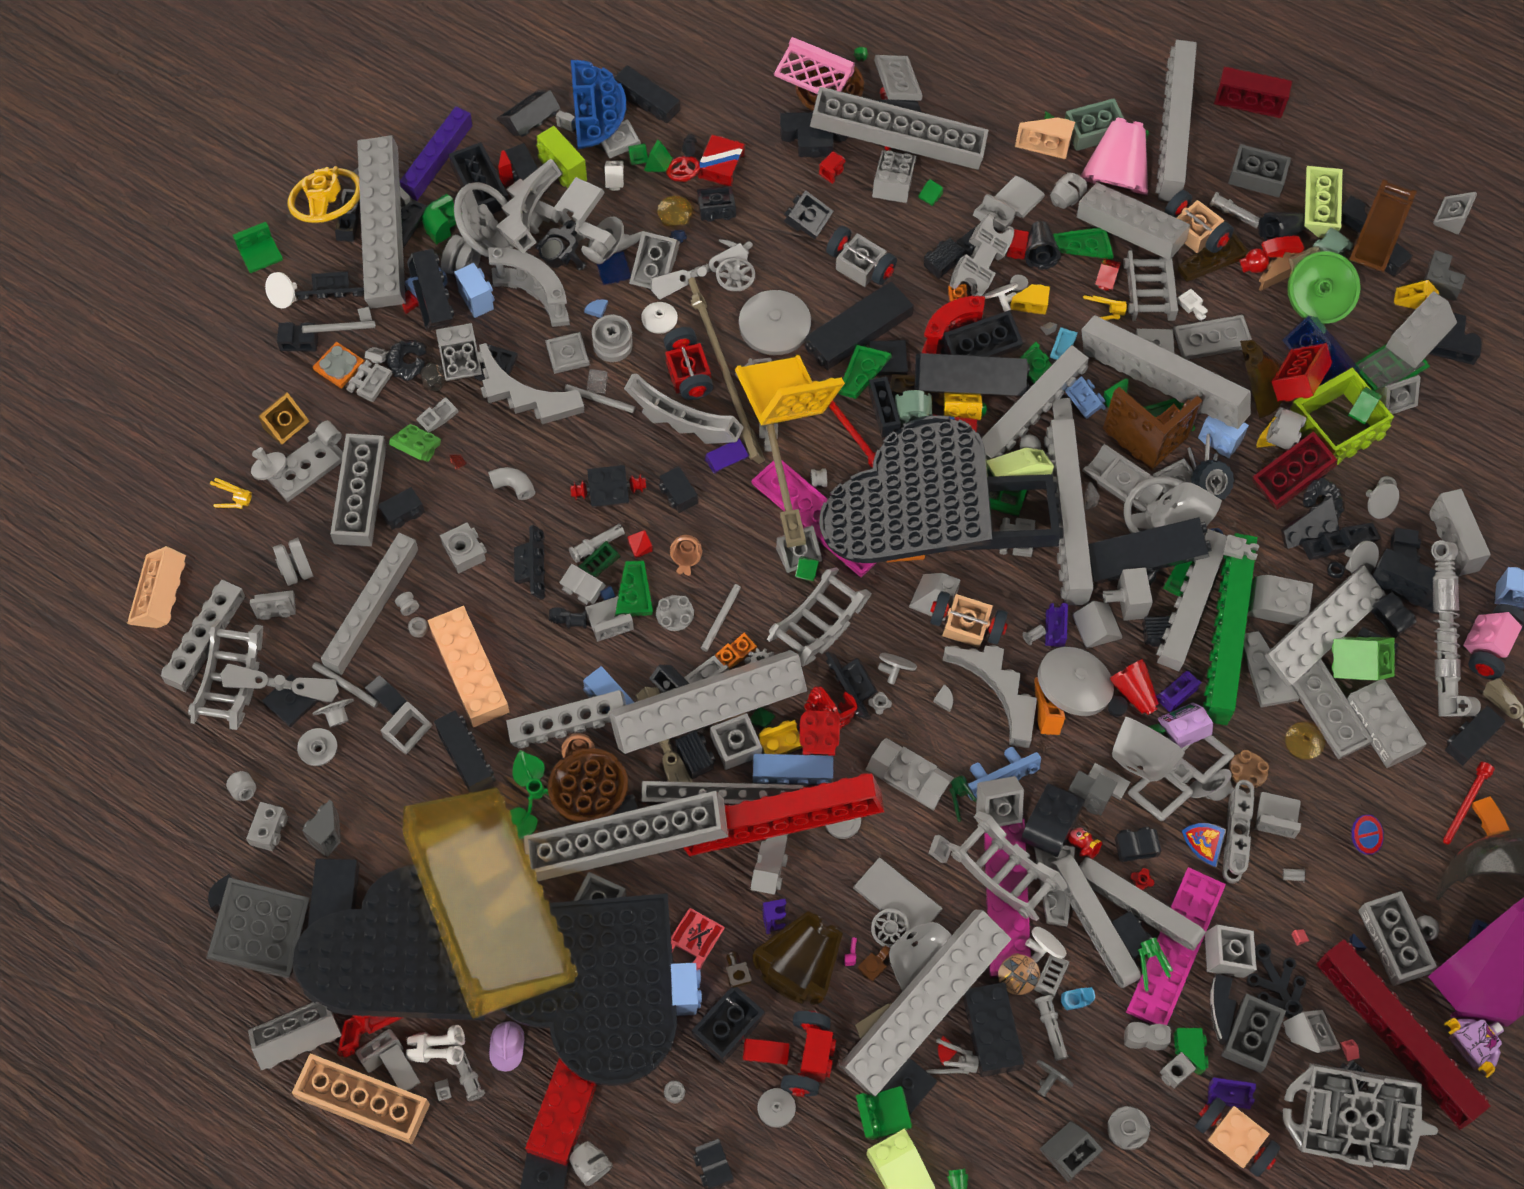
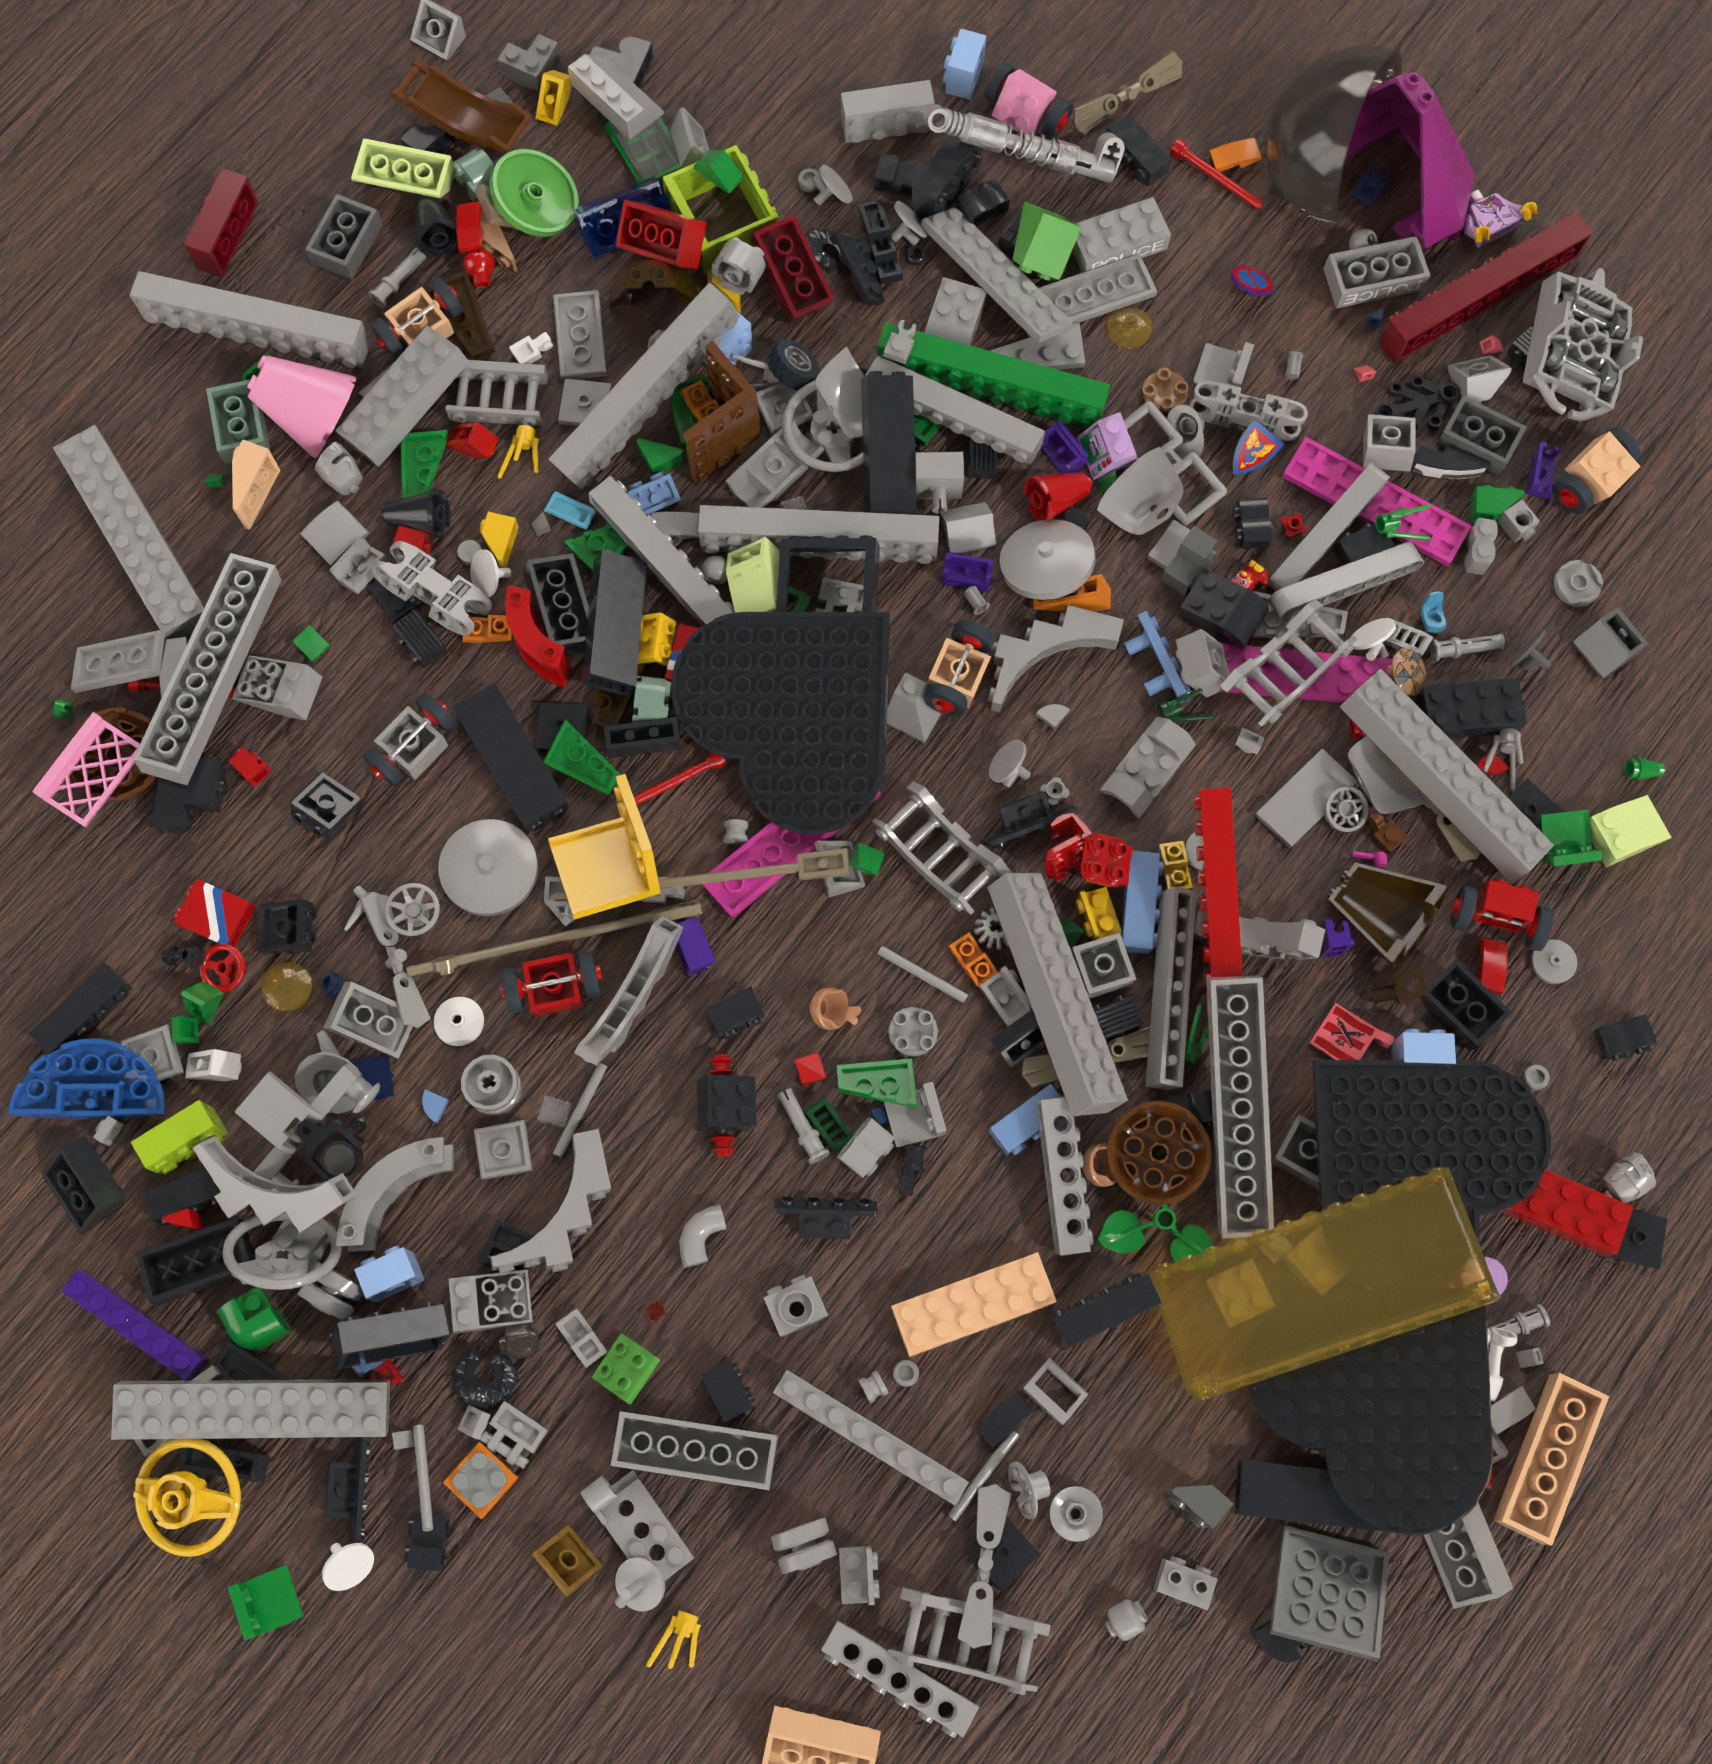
camera: 85 degrees left, 10 degrees up
(999, 72) = (131, 532): none -> light grey brick

